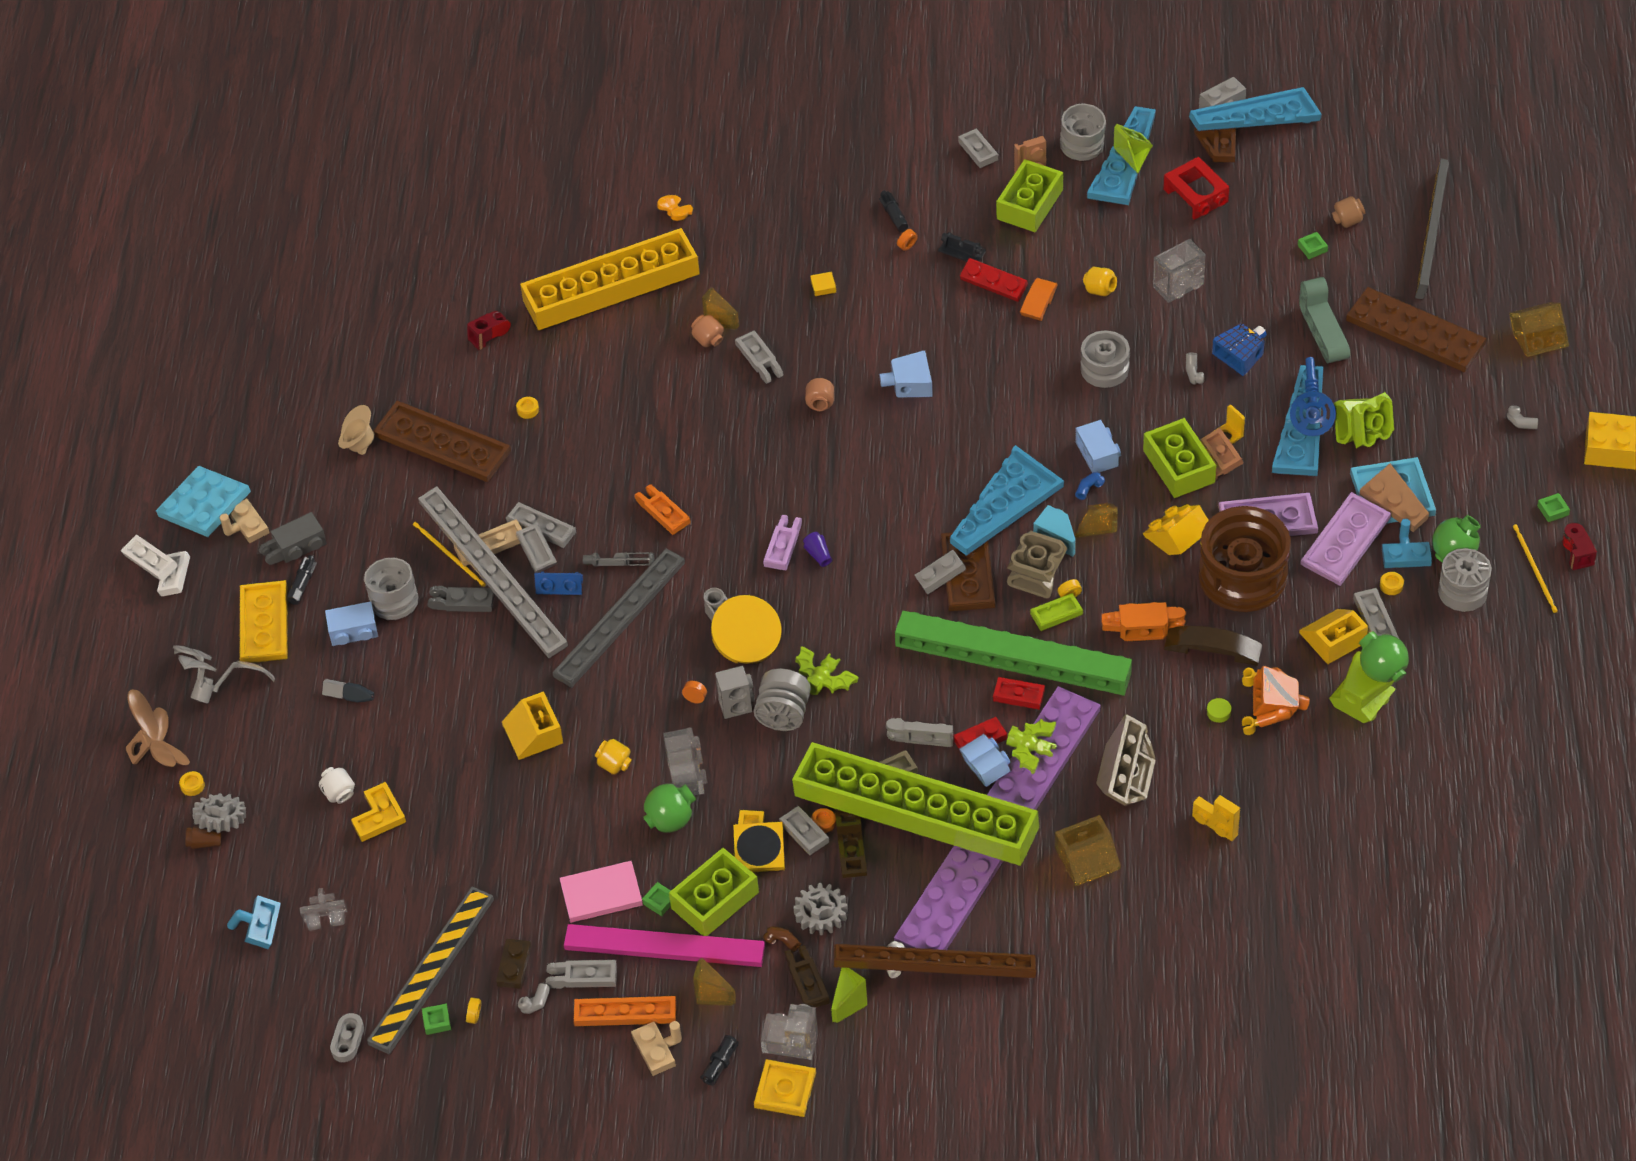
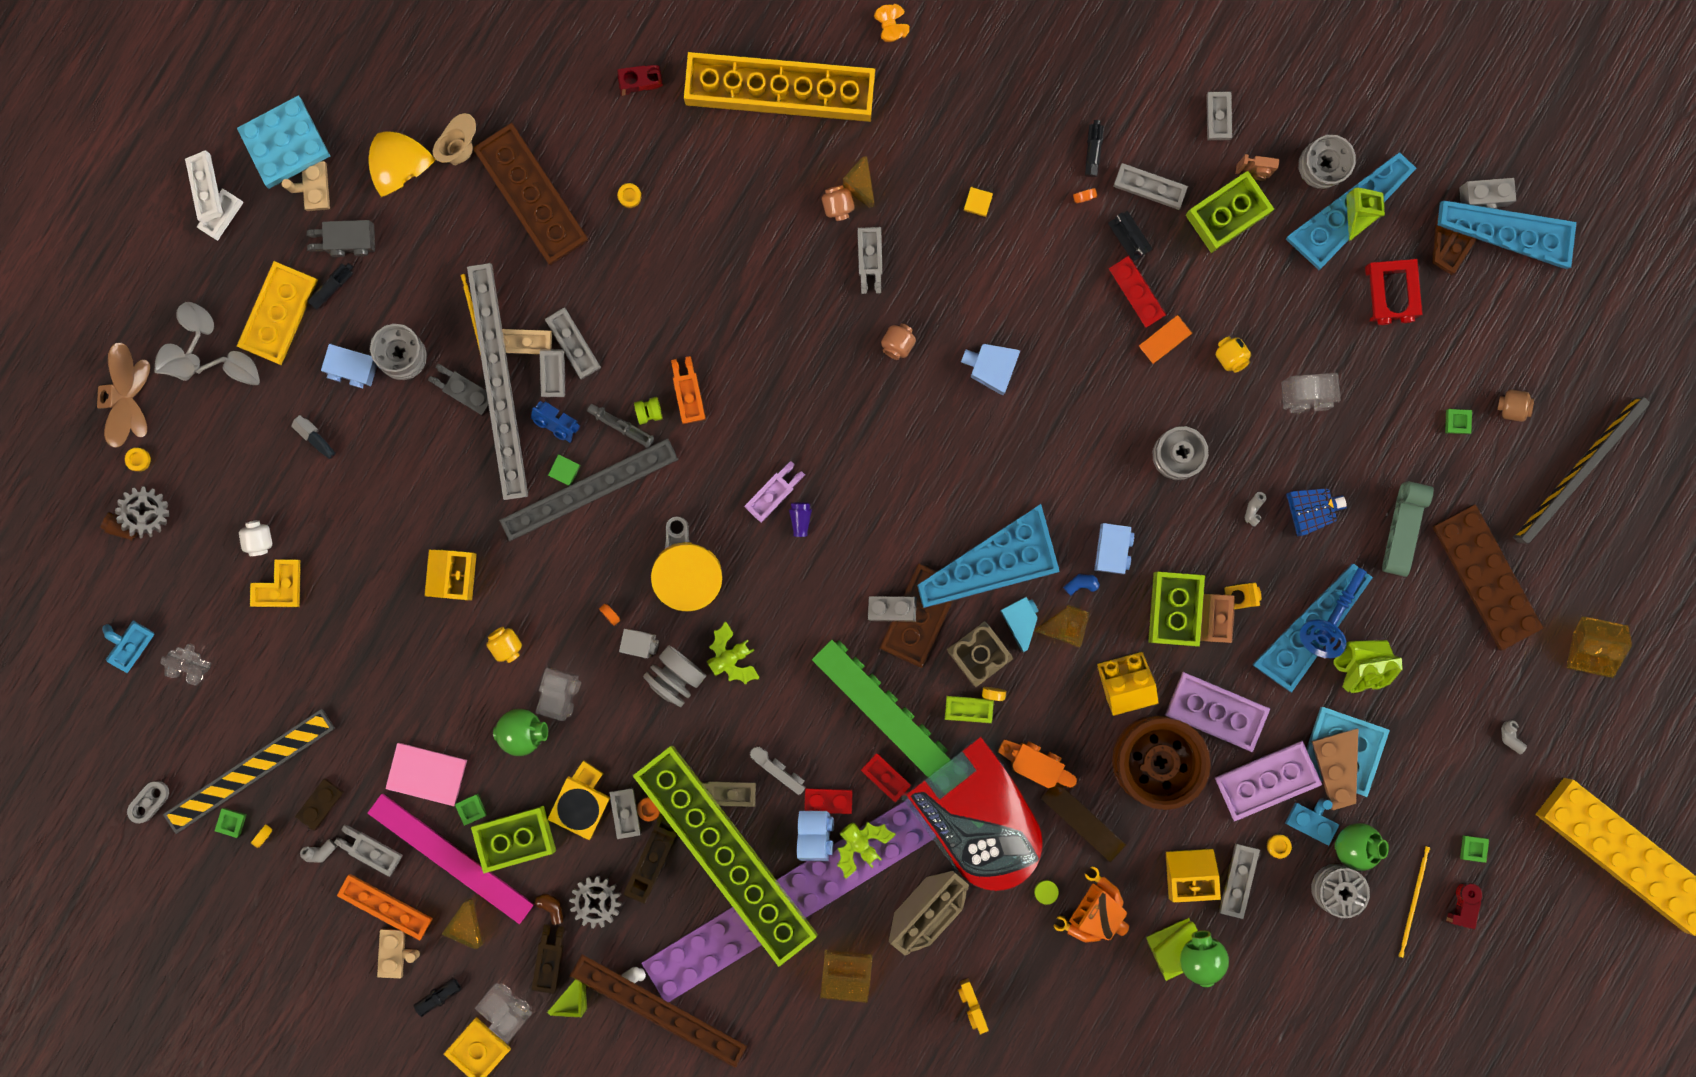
camera: 25 degrees right, 35 degrees up
(312, 465) = (395, 160): none -> yellow brick
(588, 613) = (564, 470): none -> bright green tile
(636, 536) = (653, 409): none -> lime wheel
(955, 212) = (1150, 186): none -> light grey plate
(1115, 674) = (979, 819): none -> windscreen

